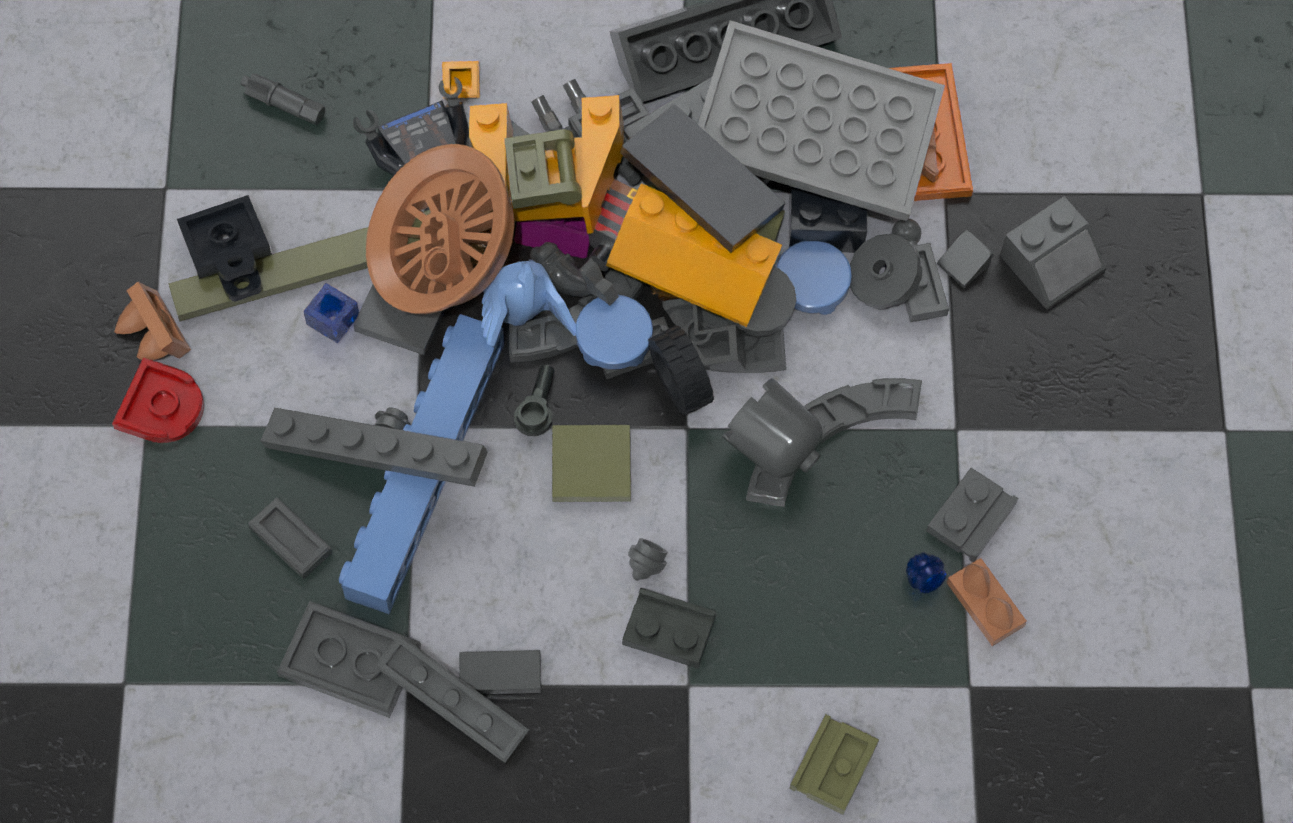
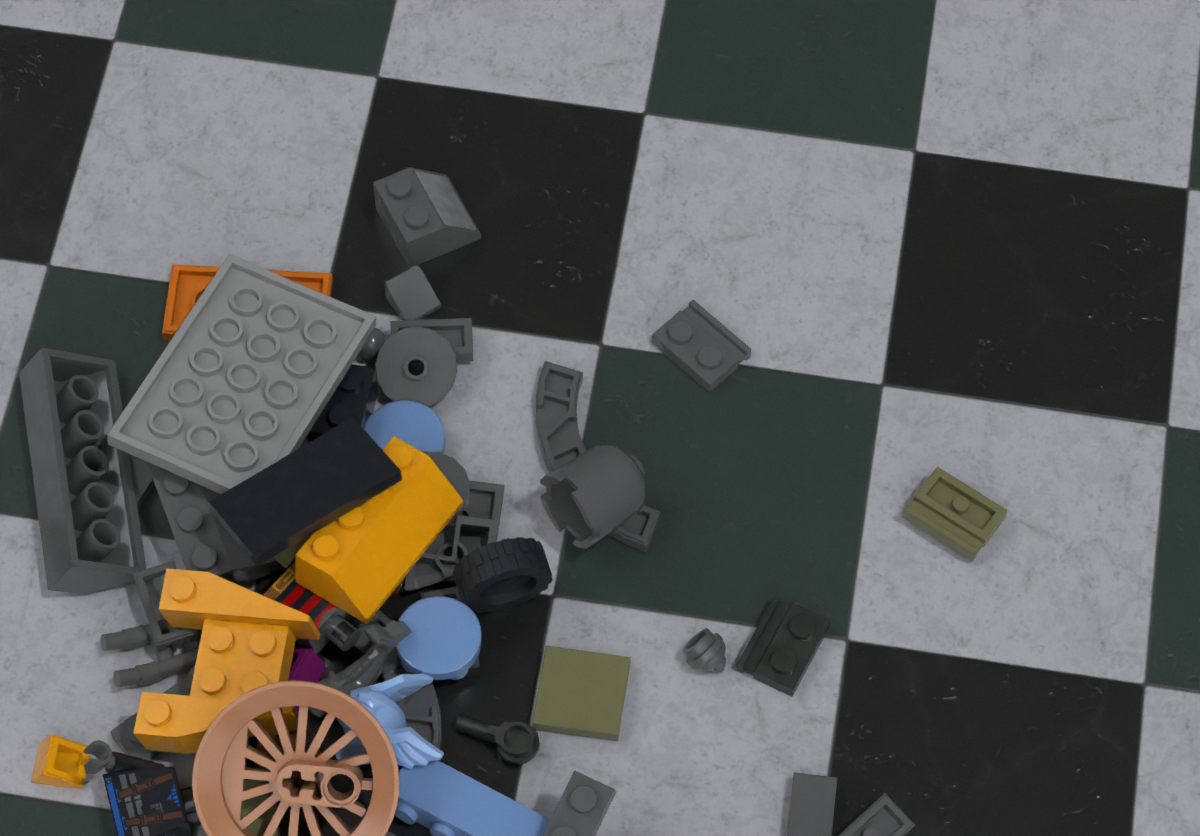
camera: 80 degrees left, 5 degrees down
(529, 169) = (241, 670): olive plate -> none
(925, 572) = (759, 396): clear blue plate -> none
(986, 602) = (797, 351): nougat tile -> none

